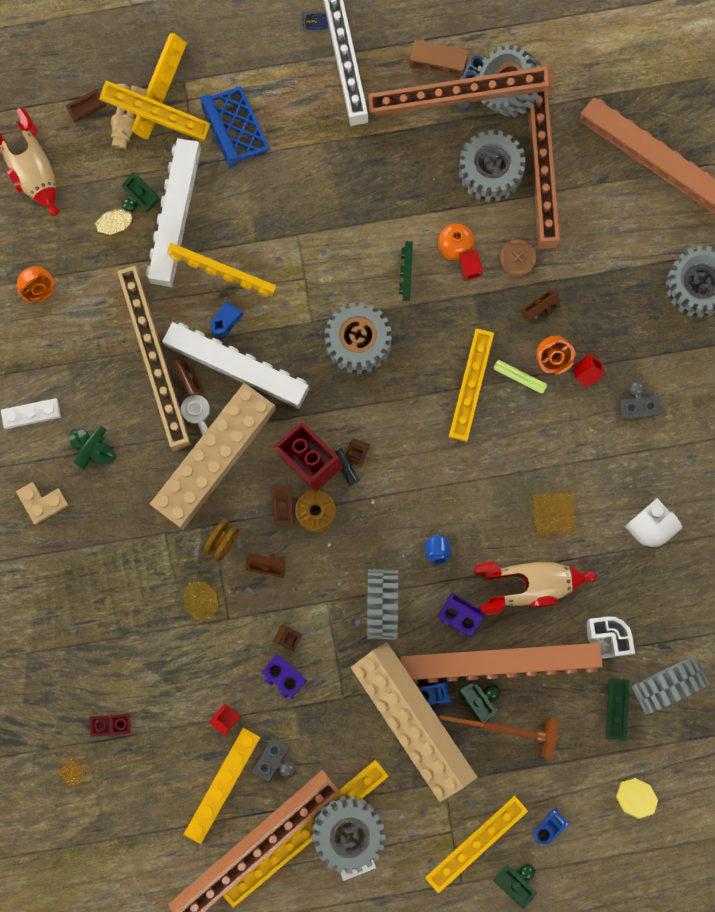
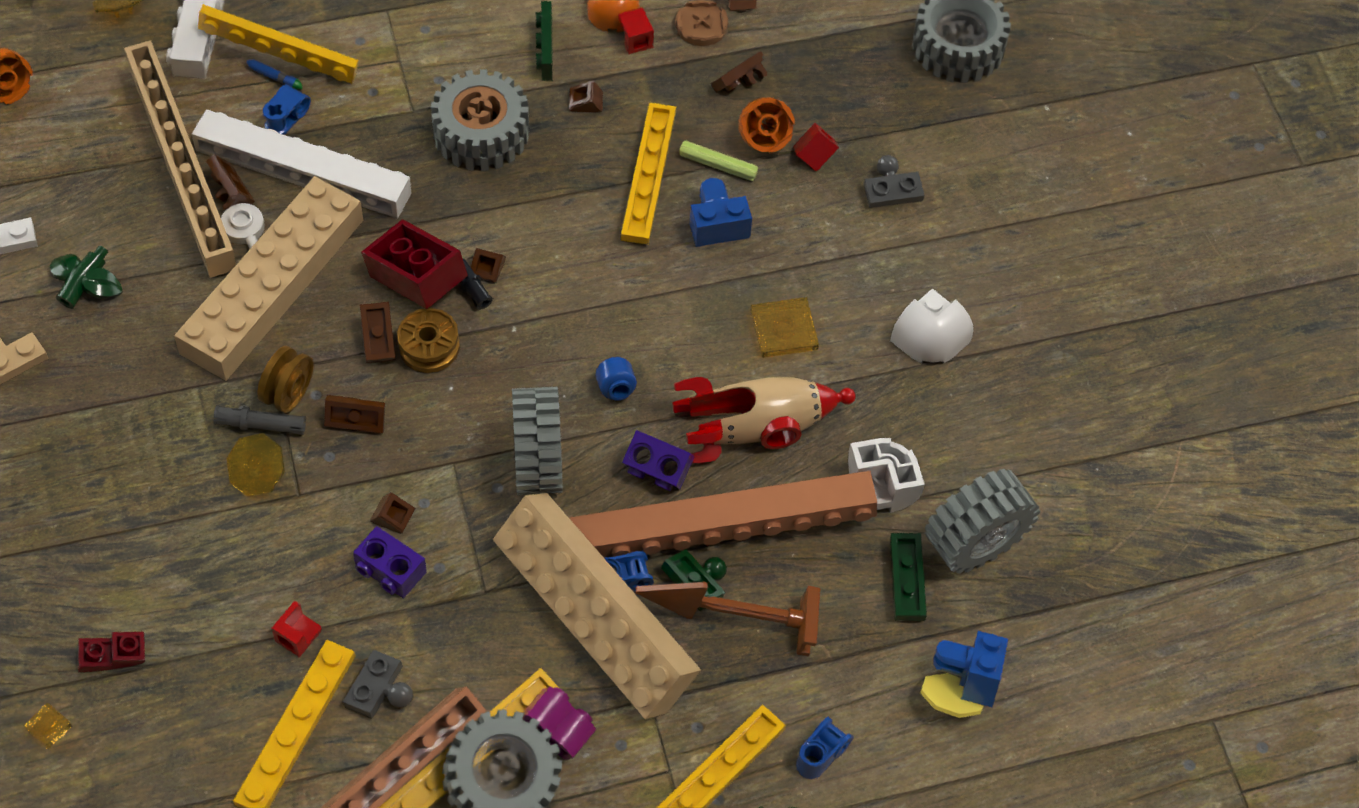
camera: 15 degrees left, 20 degrees down
(195, 562) = (253, 419): none -> dark grey pin
(212, 283) = (274, 74): none -> blue piece
(384, 800) = (567, 725): none -> magenta brick
(432, 318) = (586, 98): none -> reddish brown slope
(516, 425) = (718, 217): none -> blue brick
(655, 782) = (977, 665): none -> blue brick

